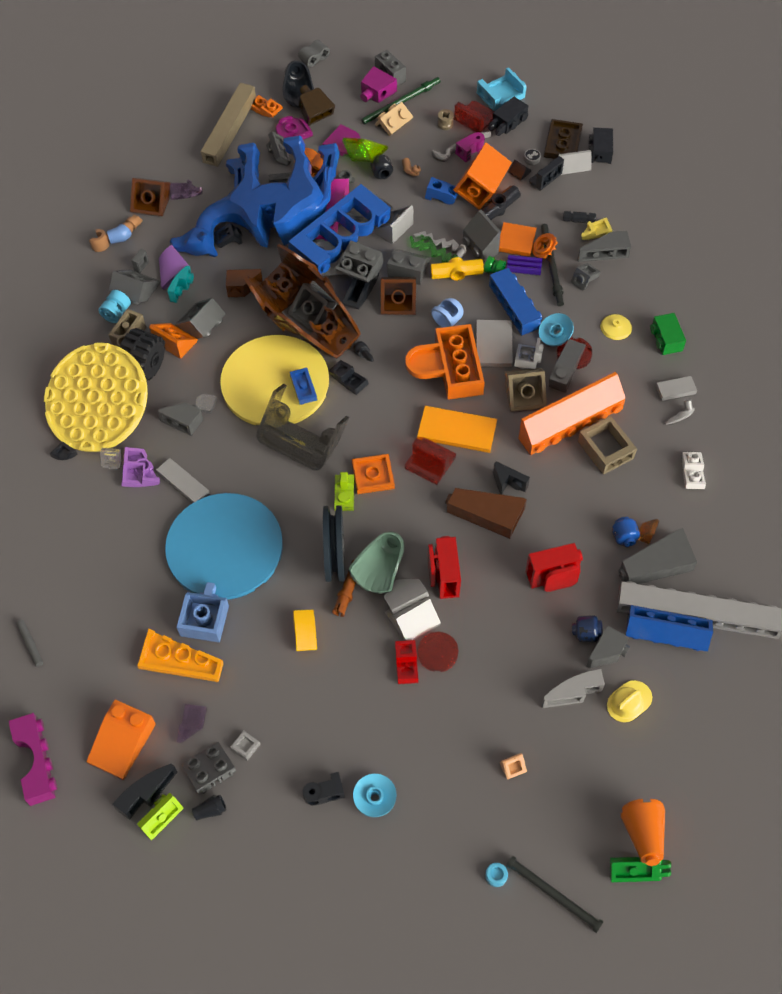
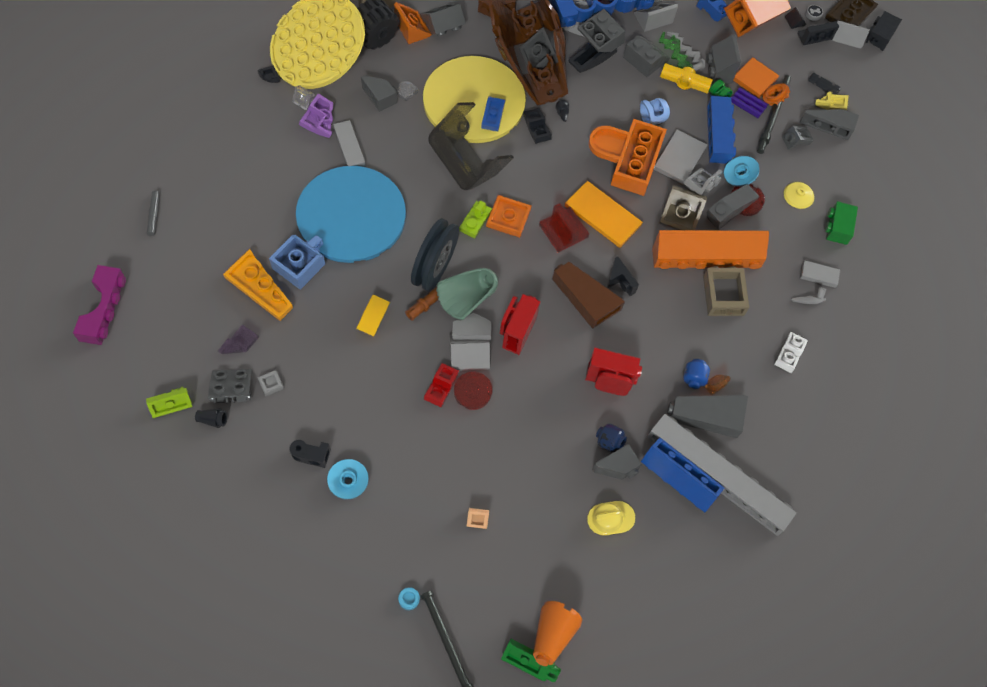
camera: 20 degrees right, 5 degrees up
(120, 739) = (176, 325): orange slope -> none
(144, 790) = (170, 376): black slope -> none
(398, 295) = (621, 76): reddish brown slope -> none
(501, 201) = (759, 39): black piece -> none
(575, 689) = (567, 482): light grey slope -> none

